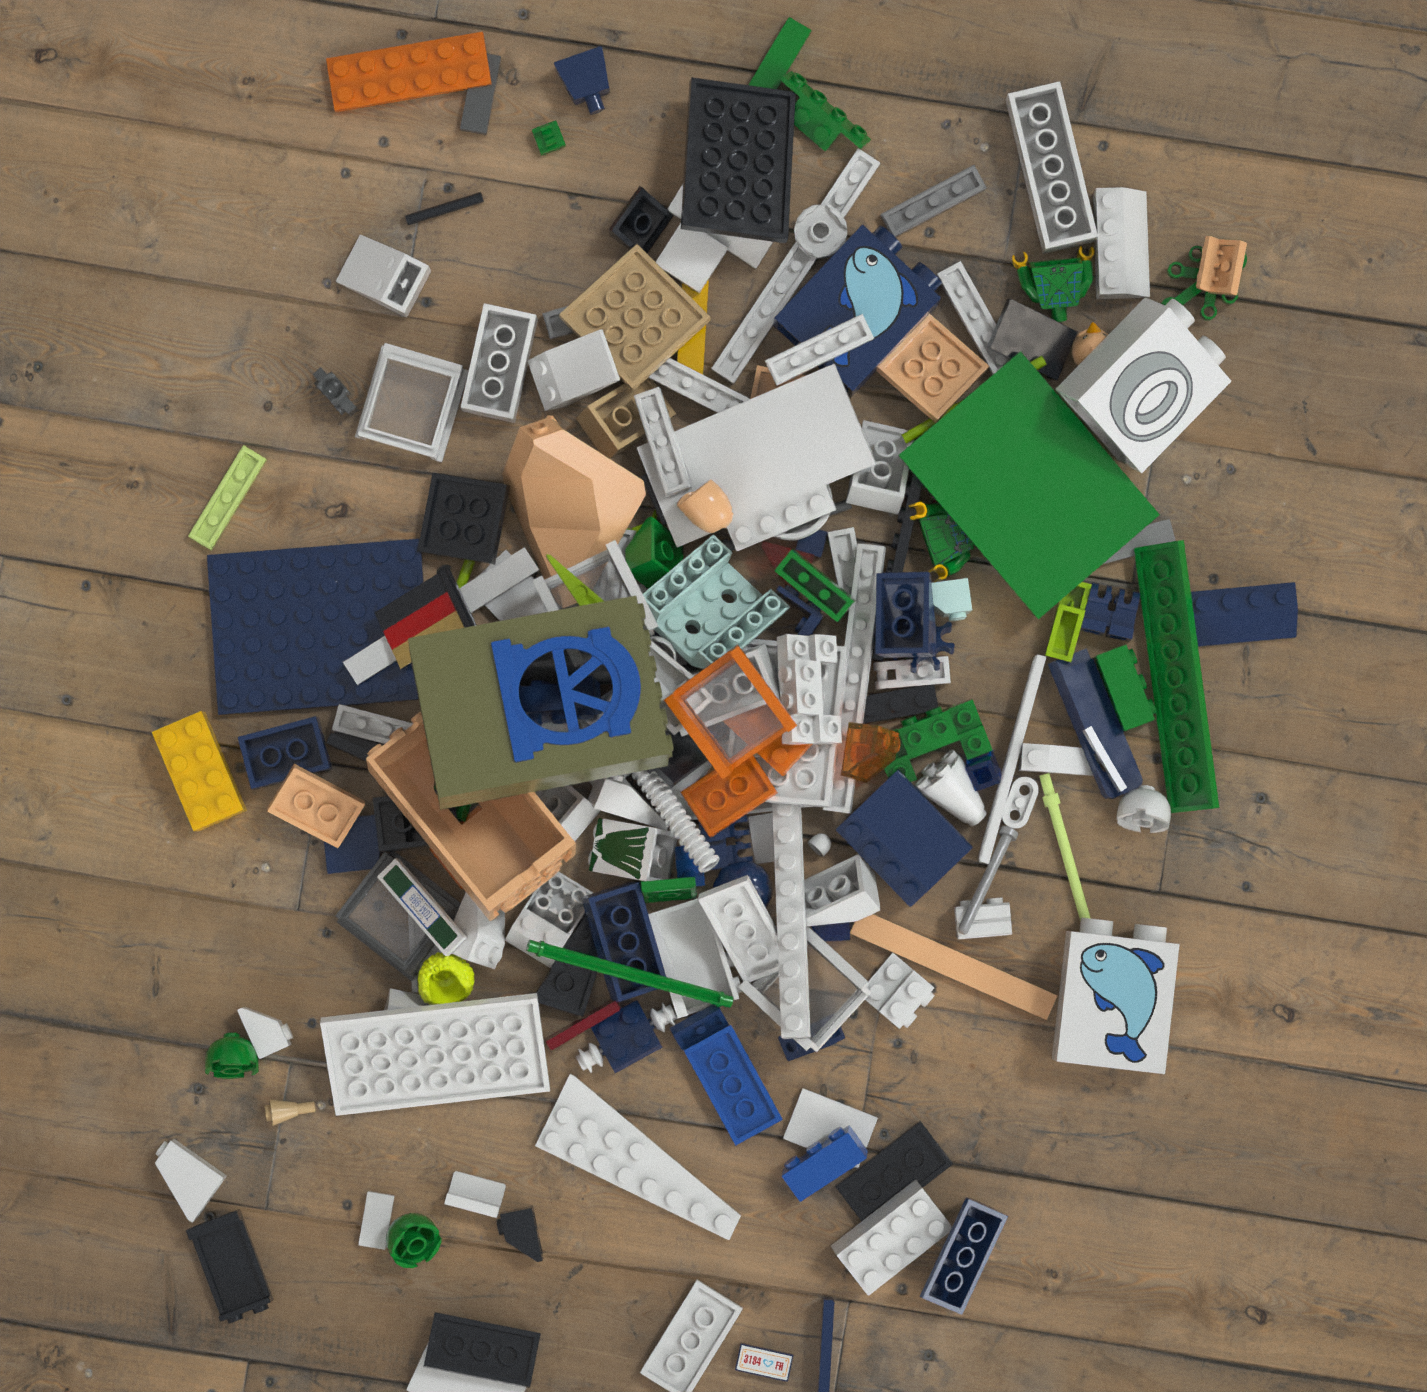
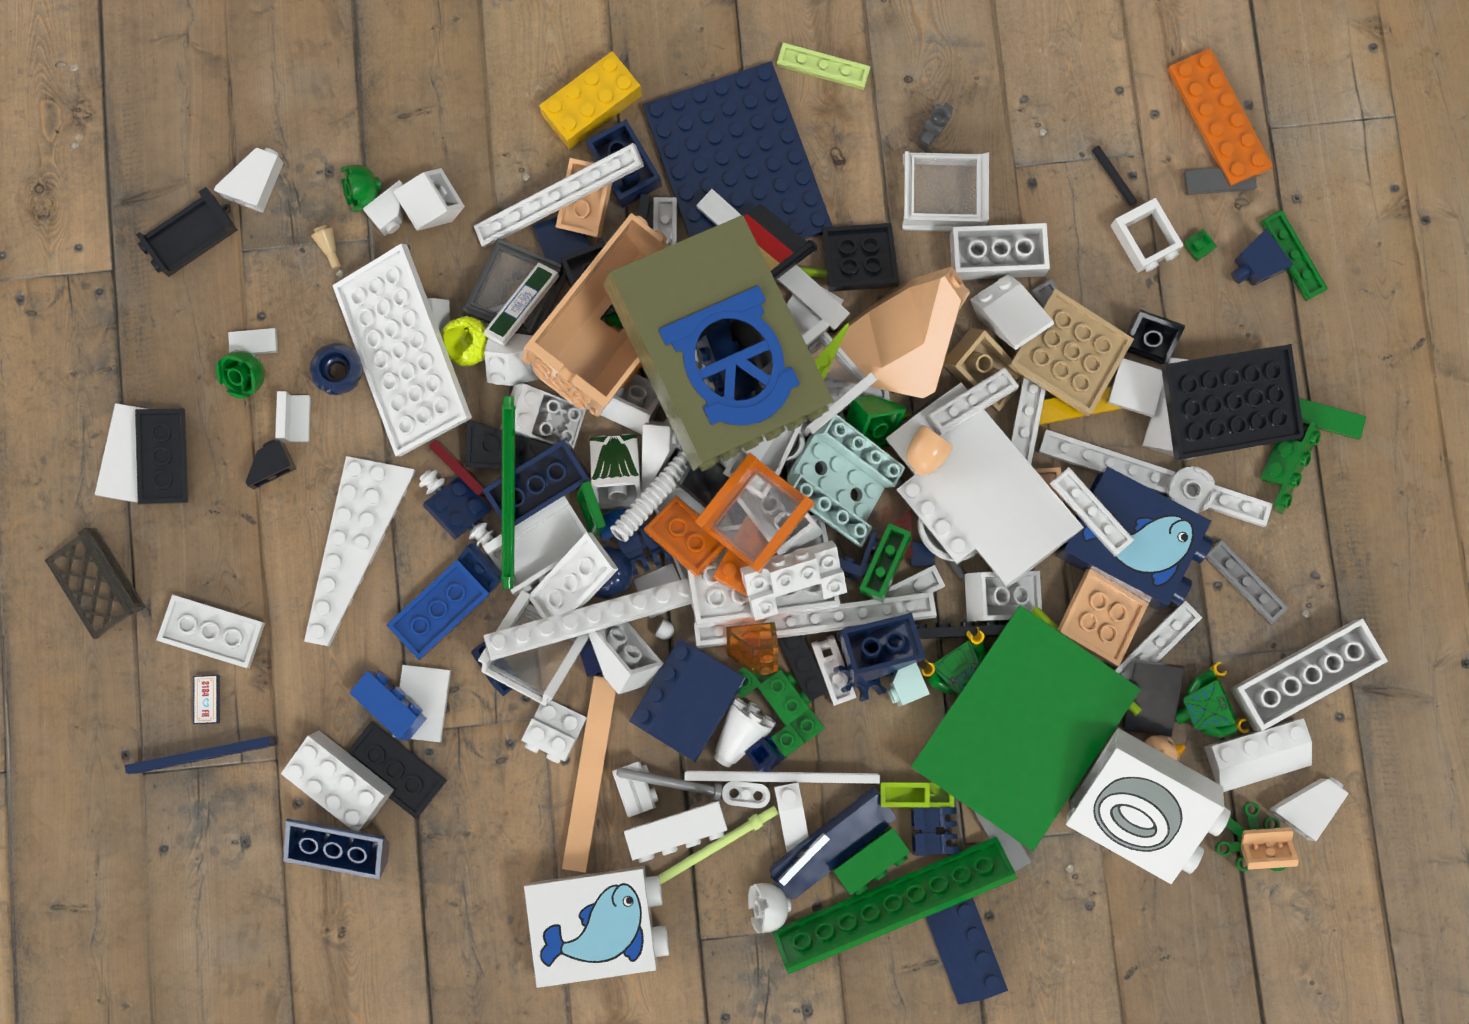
camera: 75 degrees right, 5 degrees down
(269, 981) = (429, 200): none -> white slope
(307, 835) = (559, 195): none -> white tile
(384, 275) = (1044, 142): white slope -> none
(452, 1127) = (323, 361): none -> dark blue piece
(505, 221) = (1120, 229): none -> white window
(579, 39) = (1303, 270): none -> green tile
(1039, 886) = (676, 830): none -> white brick
(1189, 206) = (1311, 807): none -> white slope

